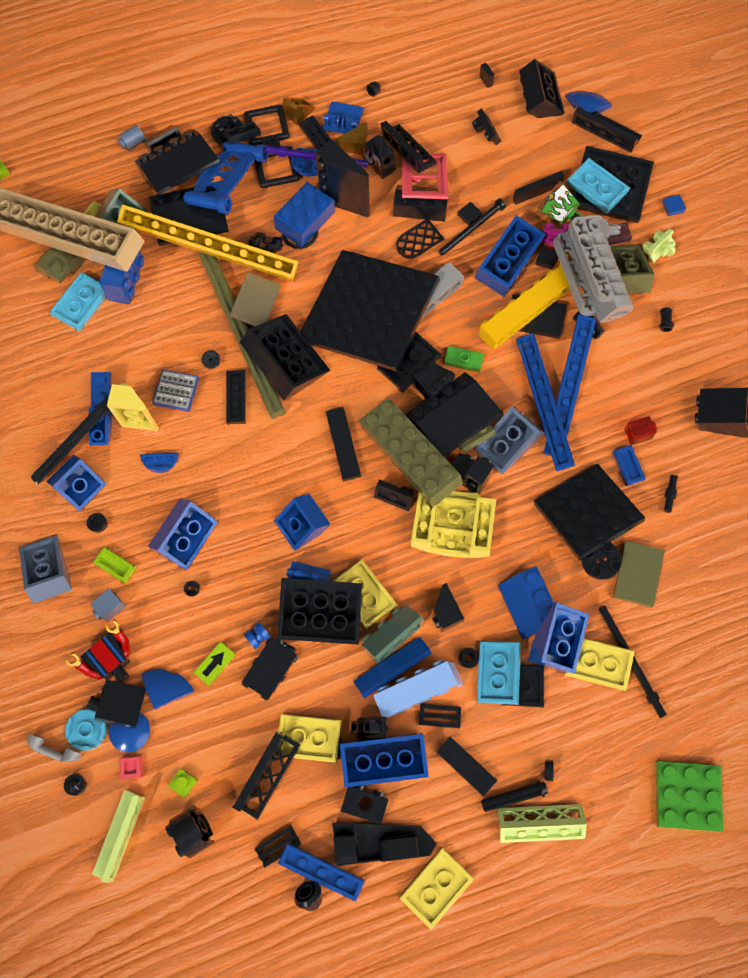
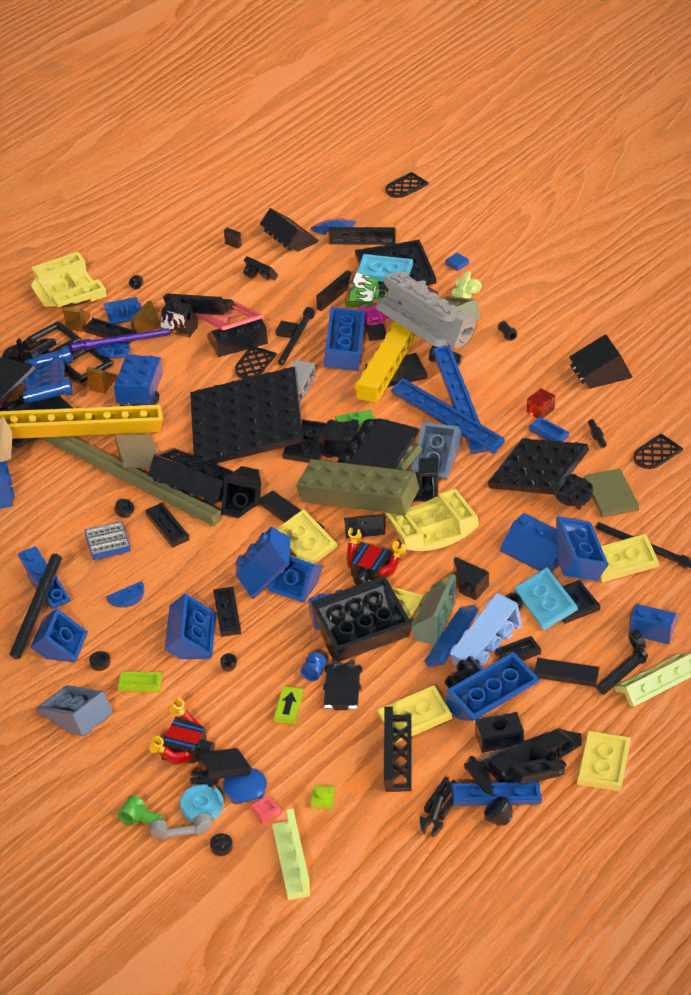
camera: 30 degrees left, 30 degrees down
(27, 710) = (135, 811): none -> bright green pin
(107, 605) = (156, 706): sand blue brick -> none
(129, 408) = (83, 556): light yellow slope -> none
(165, 687) = (255, 740): blue brick -> none
(190, 832) = (358, 814): black brick -> none
(227, 526) = (227, 611): none -> black tile
(253, 866) = (433, 817): none -> black bar
(276, 194) = (100, 380): none -> pearl gold slope
(276, 501) = (263, 561): none -> blue slope
(310, 62) = (65, 282): none -> light yellow slope
(313, 396) = (241, 492): none -> black slope
(318, 842) = (479, 774): none -> black bar
(336, 481) = (307, 537): none -> light yellow tile
(343, 179) = (165, 333): black slope -> none
(366, 873) = (537, 770): none -> black hinge
(373, 541) = (370, 561): none -> torso
(580, 755) = (654, 623): none -> blue slope
(687, 70) = (423, 183): none -> black window
(733, 542) = (678, 449): none -> black window

